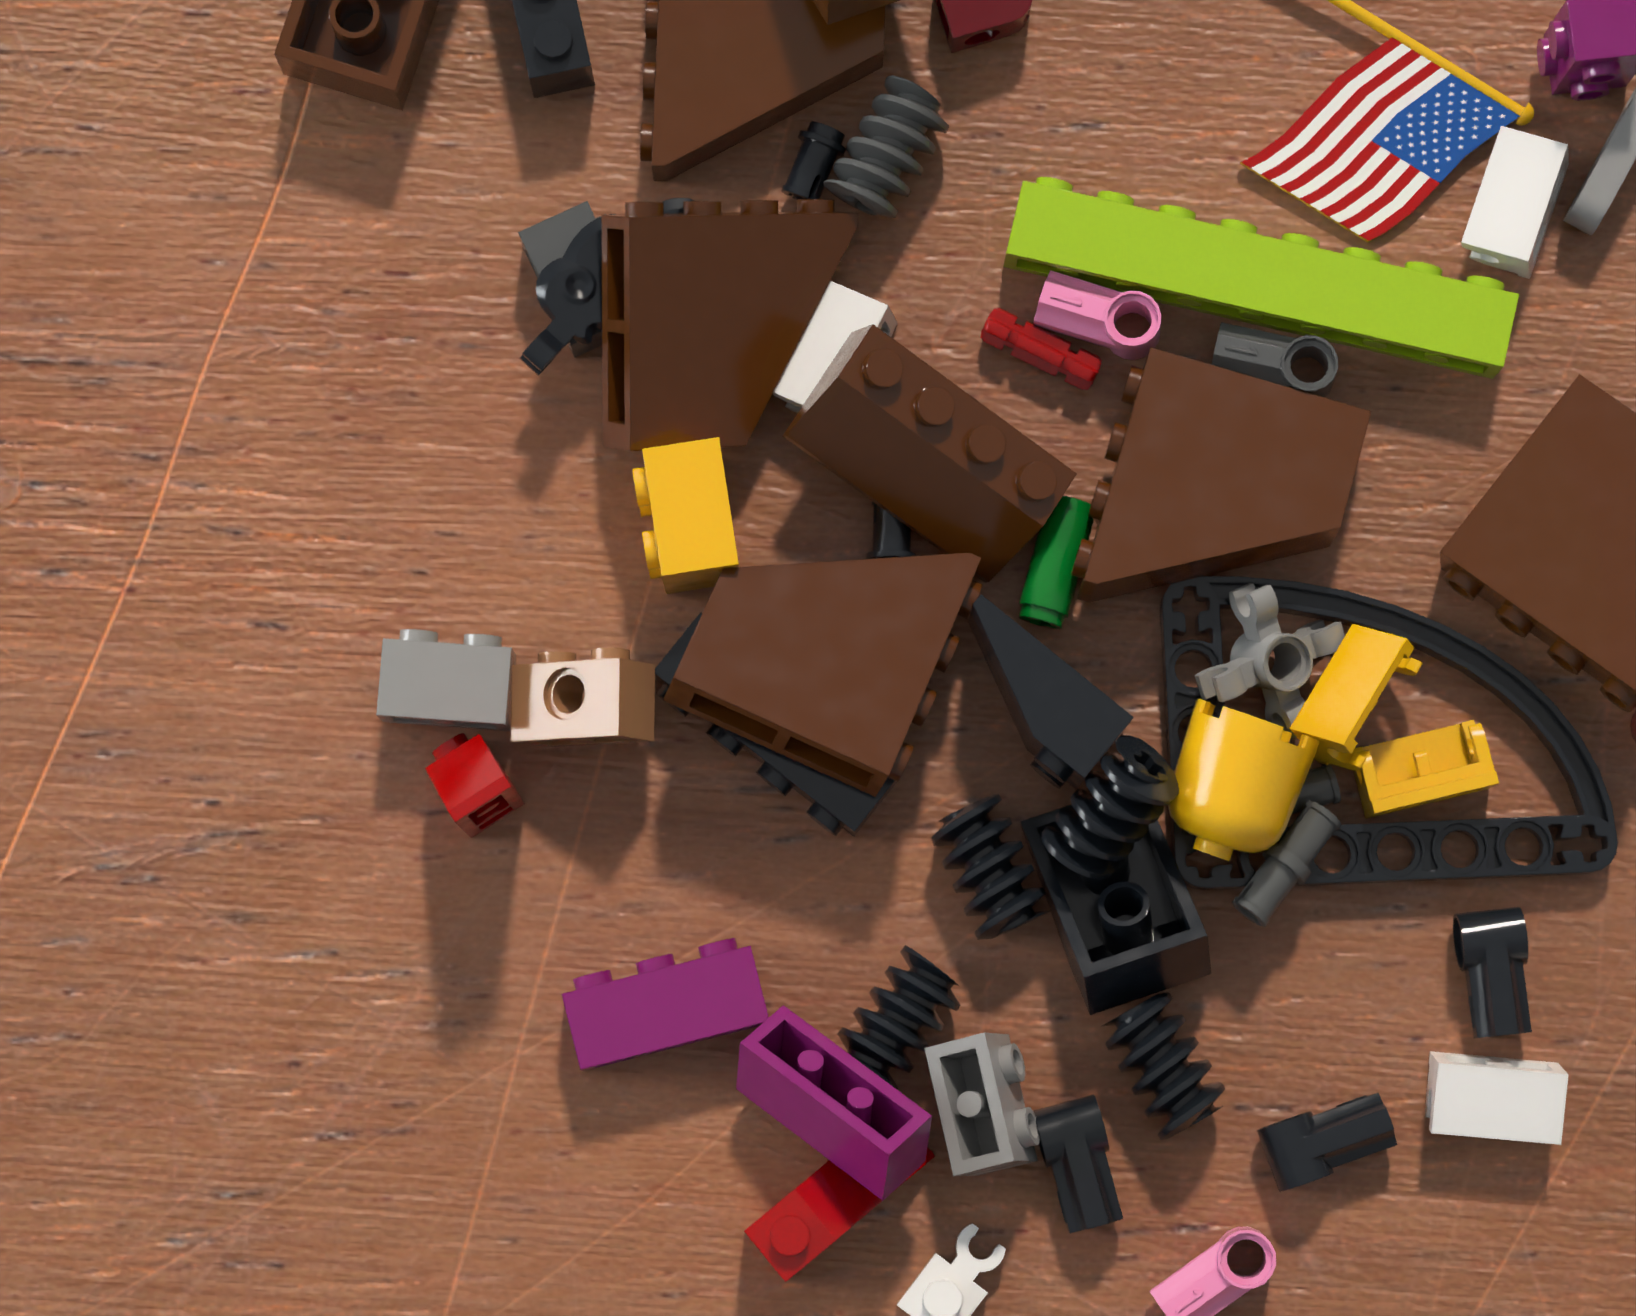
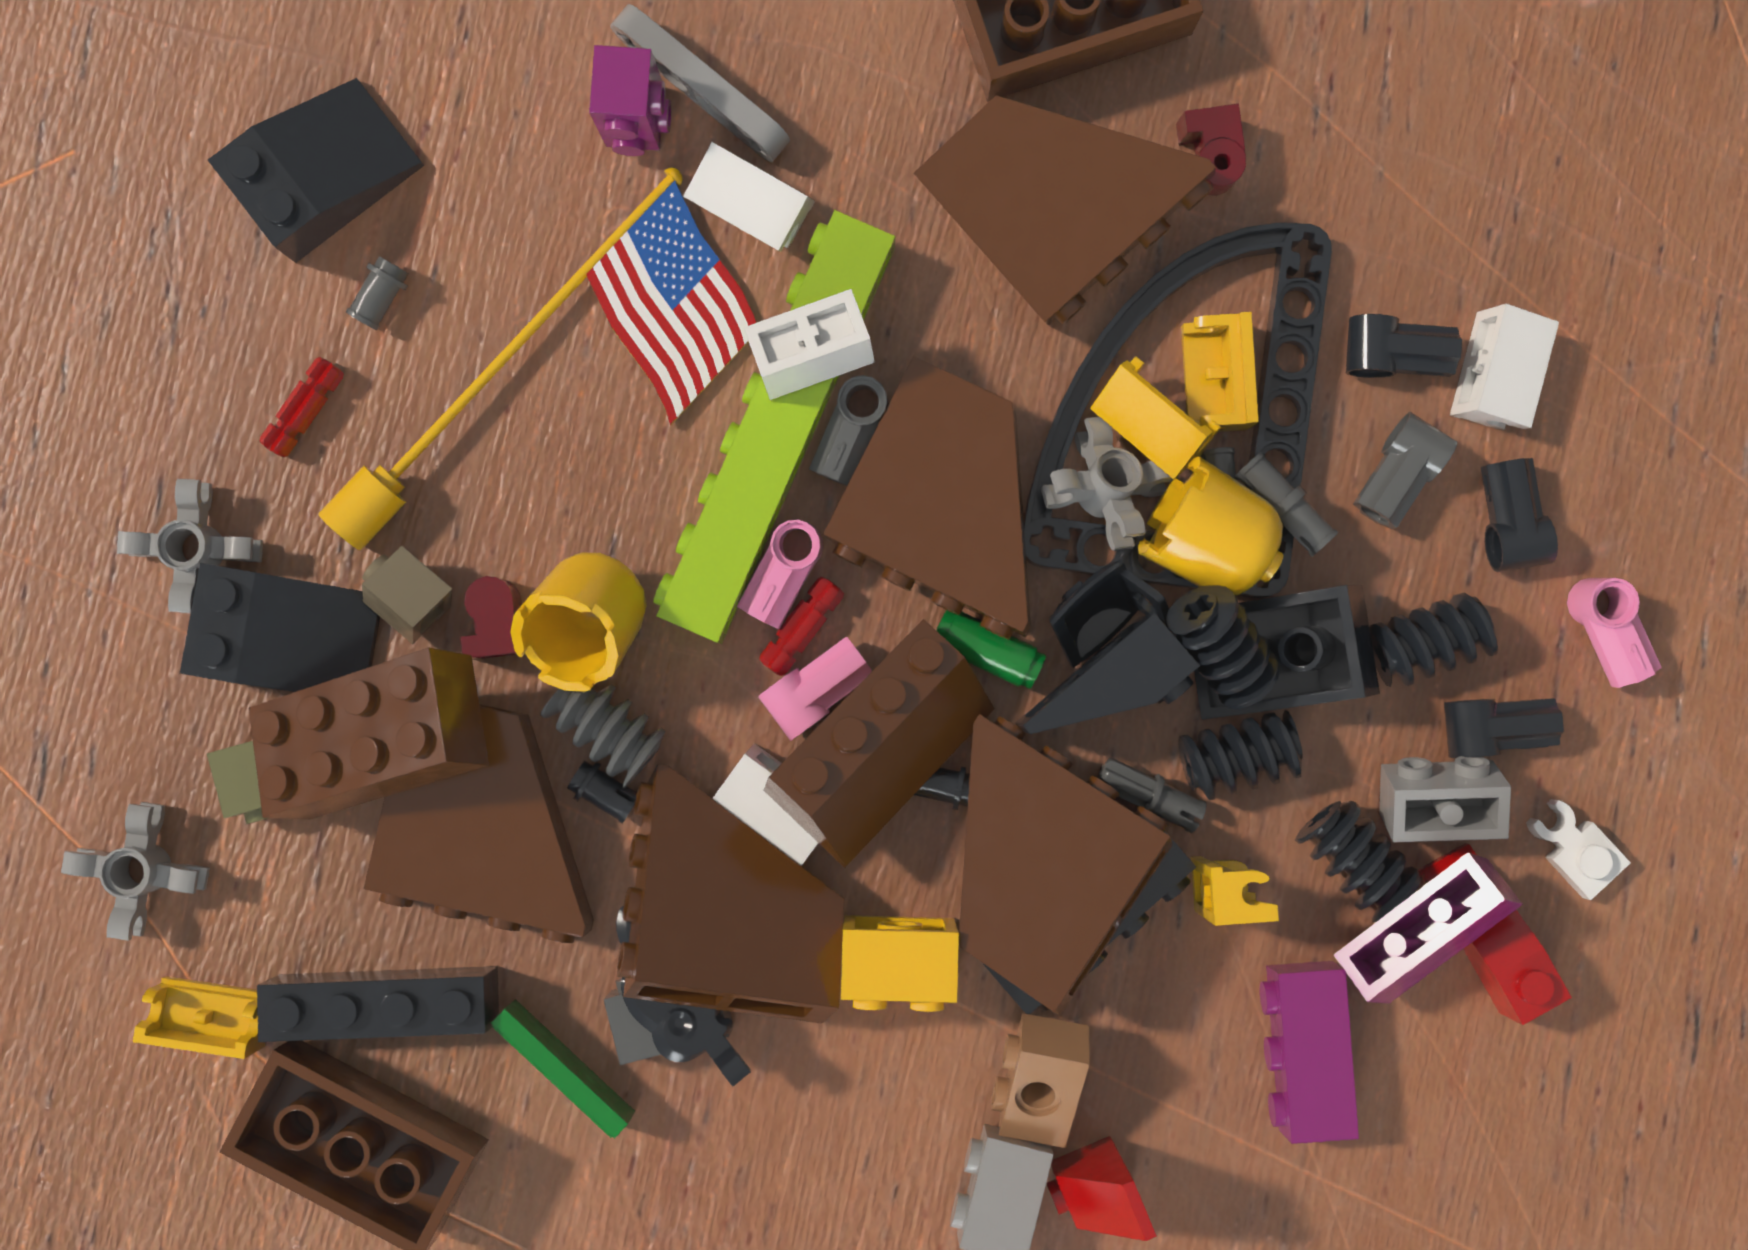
camera: 80 degrees left, 5 degrees up
(498, 174) = (563, 1069): none -> green tile
(835, 861) = (1223, 893): none -> yellow hinge
(924, 775) = (1153, 794): none -> dark grey axle
(968, 361) = (807, 693): none -> bright pink piece
(1003, 97) = (580, 621): none -> yellow cylinder
(1126, 671) = (1101, 608): none -> black piece
(1358, 288) = (810, 344): none -> white hinge
(1369, 1006) = (1411, 457): none -> dark grey piece

